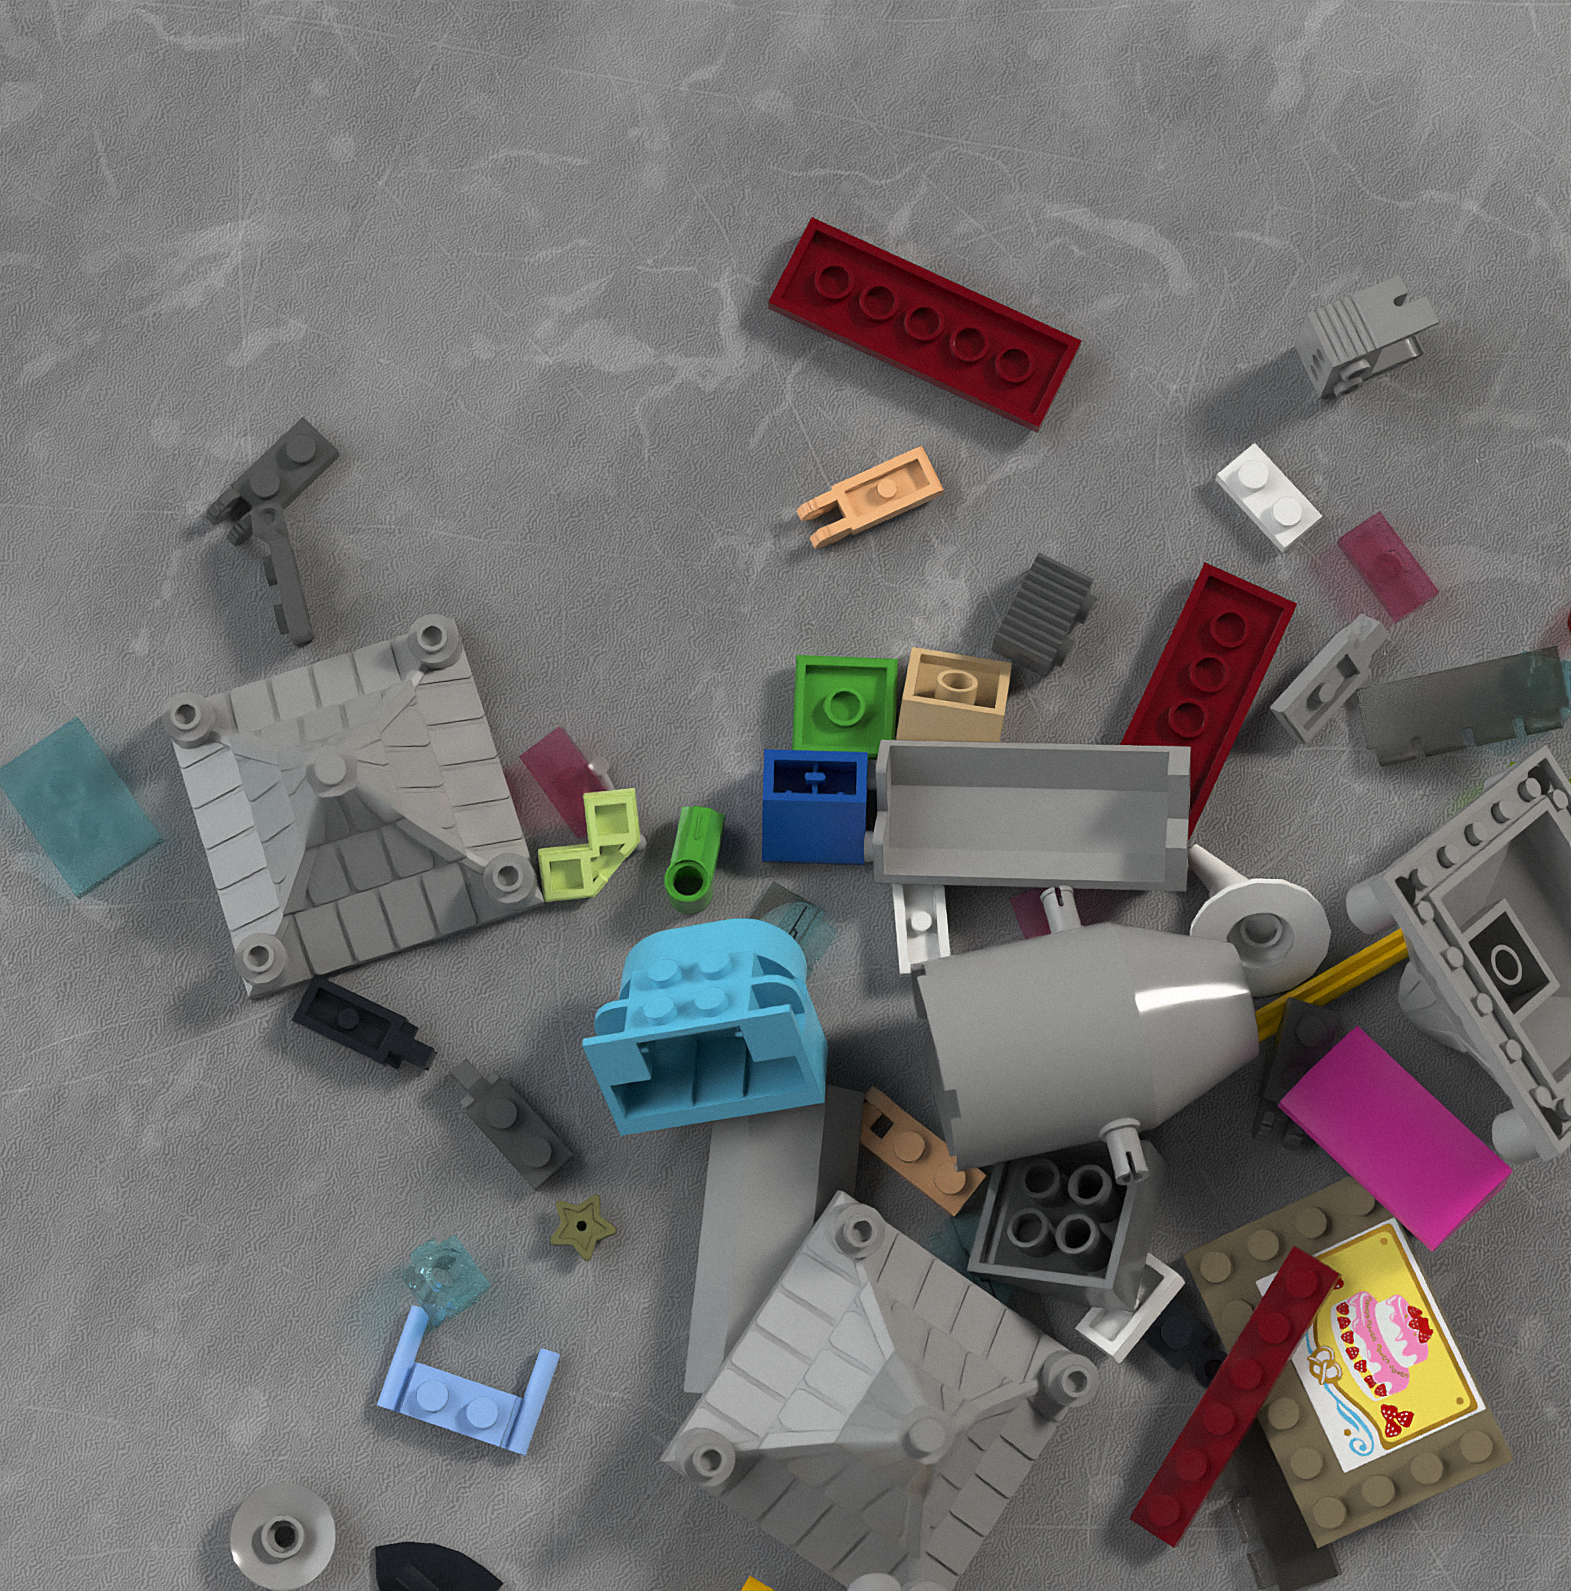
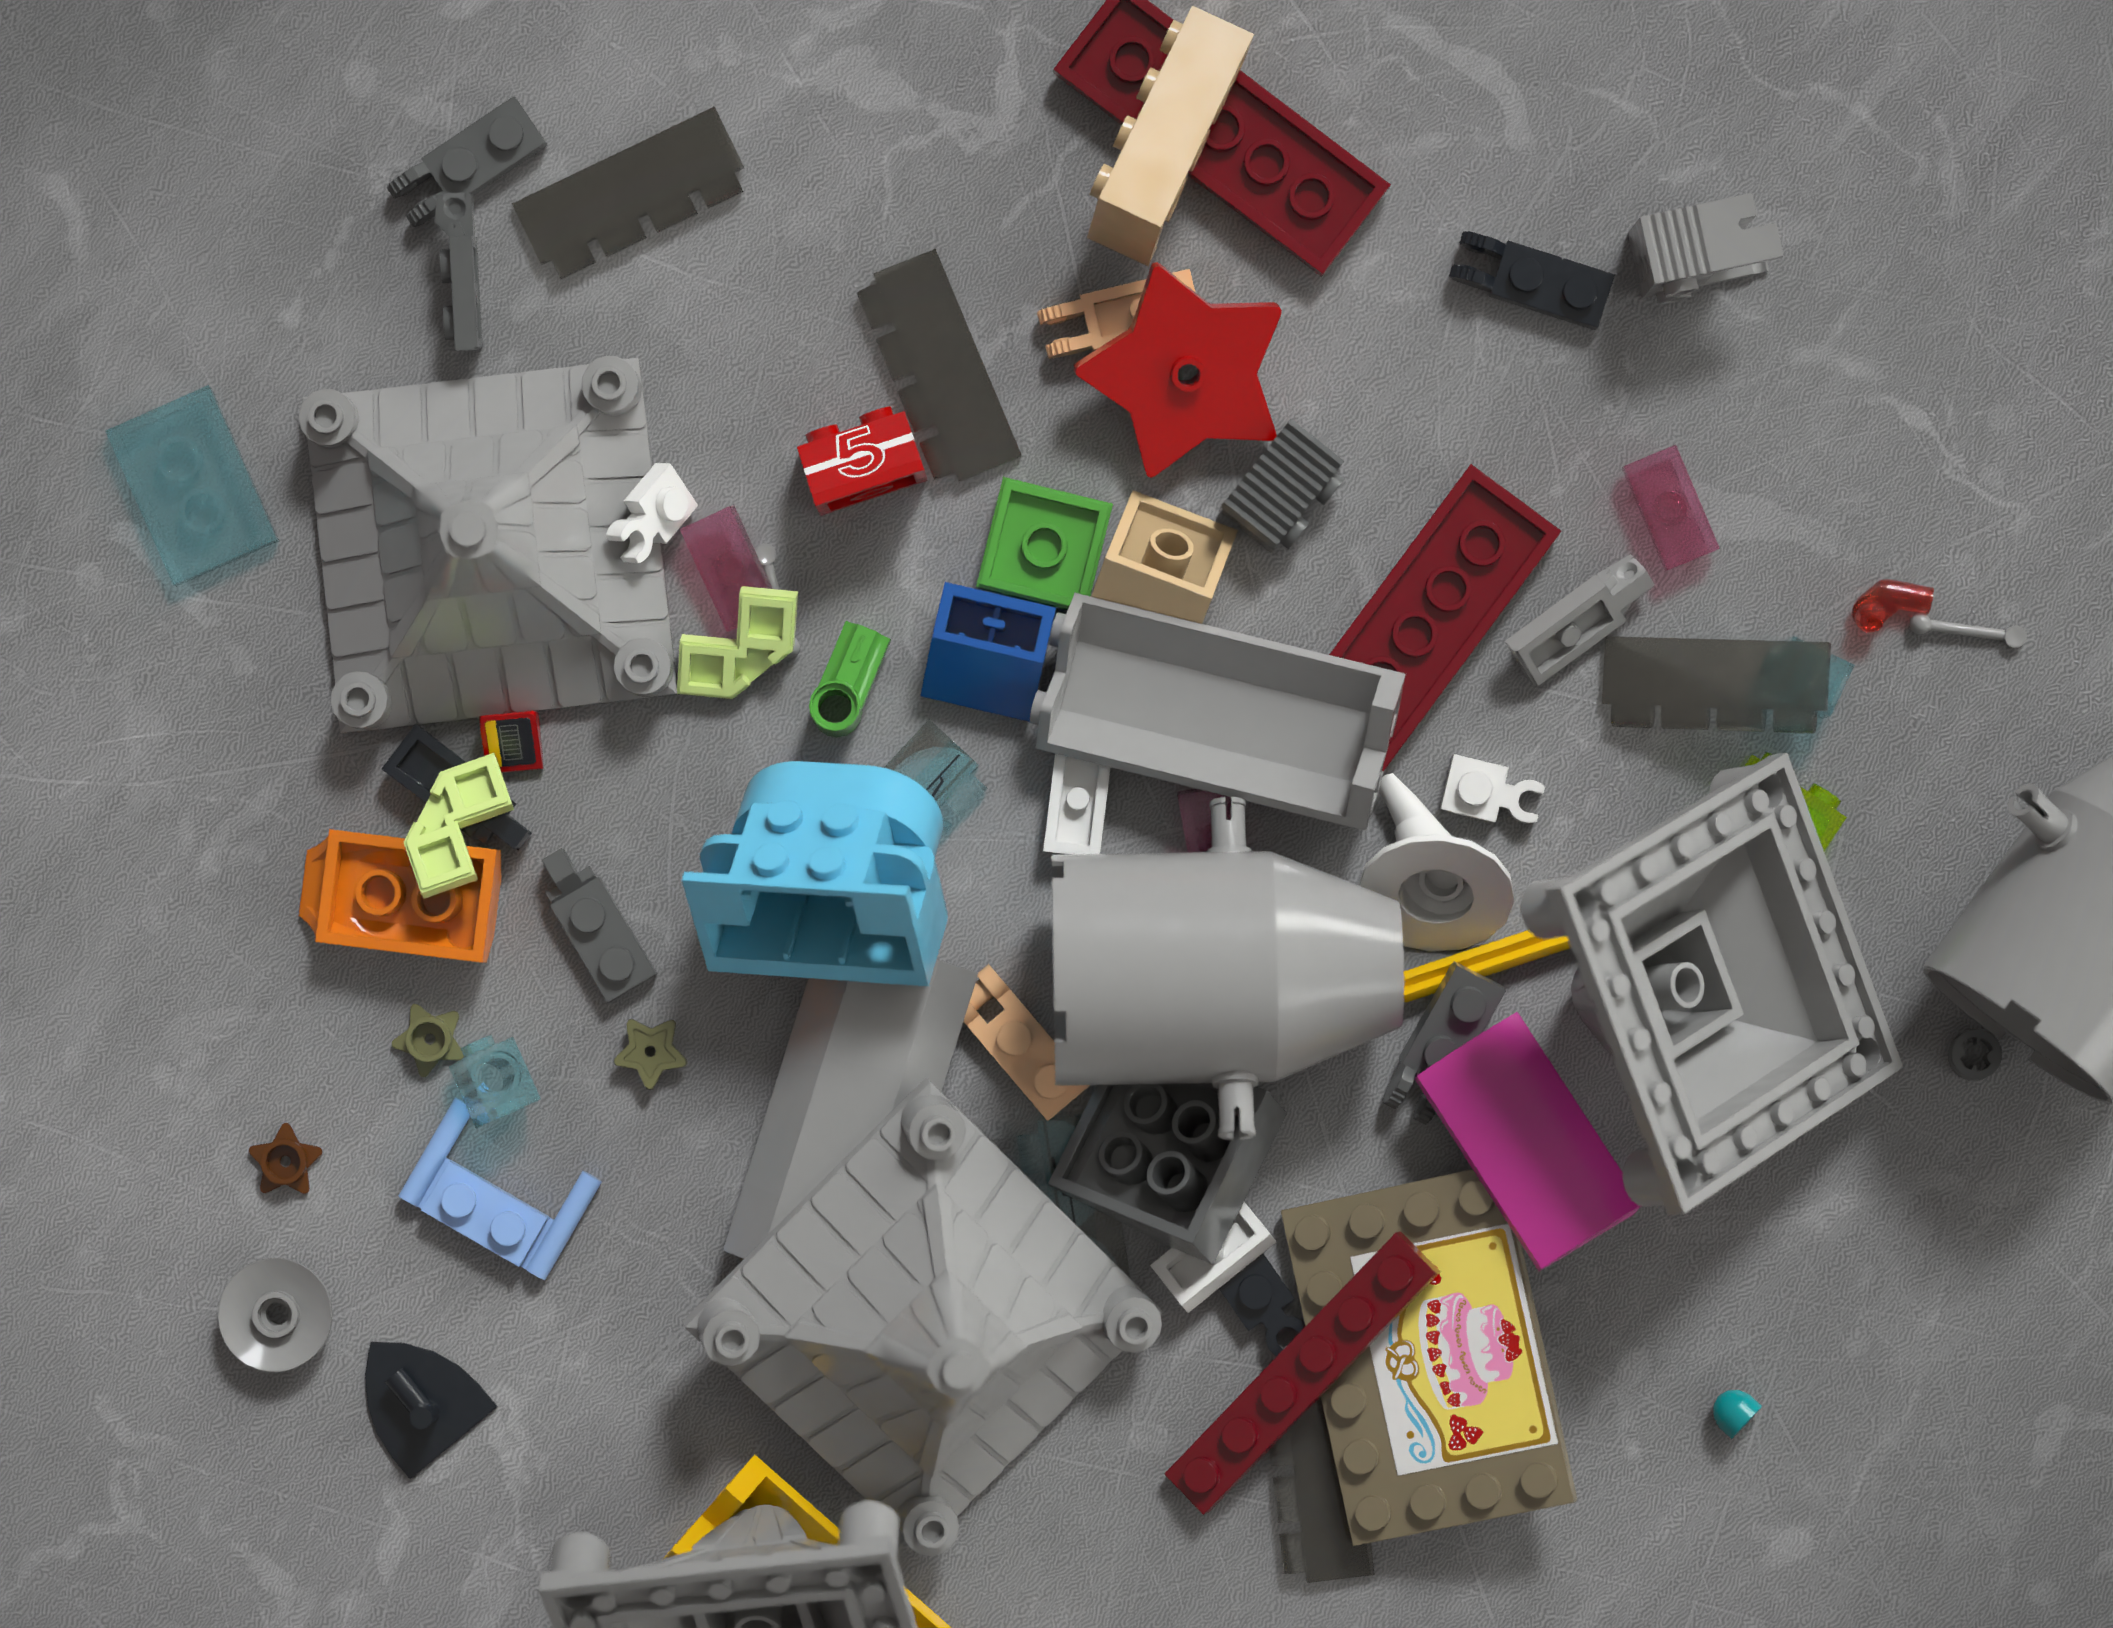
camera: 10 degrees right, 10 degrees up
(252, 1394) = (270, 1156): none -> reddish brown plate
(331, 1128) = (367, 896): none -> orange slope
(365, 1031) = (457, 800): none -> yellowish green tile
(365, 1262) = (414, 1043): none -> olive plate
(404, 973) = (513, 740): none -> slope
(407, 483) = (636, 182): none -> clear smoke windscreen
(496, 744) = (657, 511): none -> white plate
(669, 666) = (861, 461): none -> red slope
(731, 581) = (949, 372): none -> clear smoke windscreen
(879, 333) = (1168, 133): none -> tan wedge
(901, 535) = (1181, 329): none -> red plate
(1225, 399) = (1538, 280): none -> black hinge
(1268, 497) = (1558, 402): white plate -> none
(1276, 845) = (1480, 789): none -> white plate

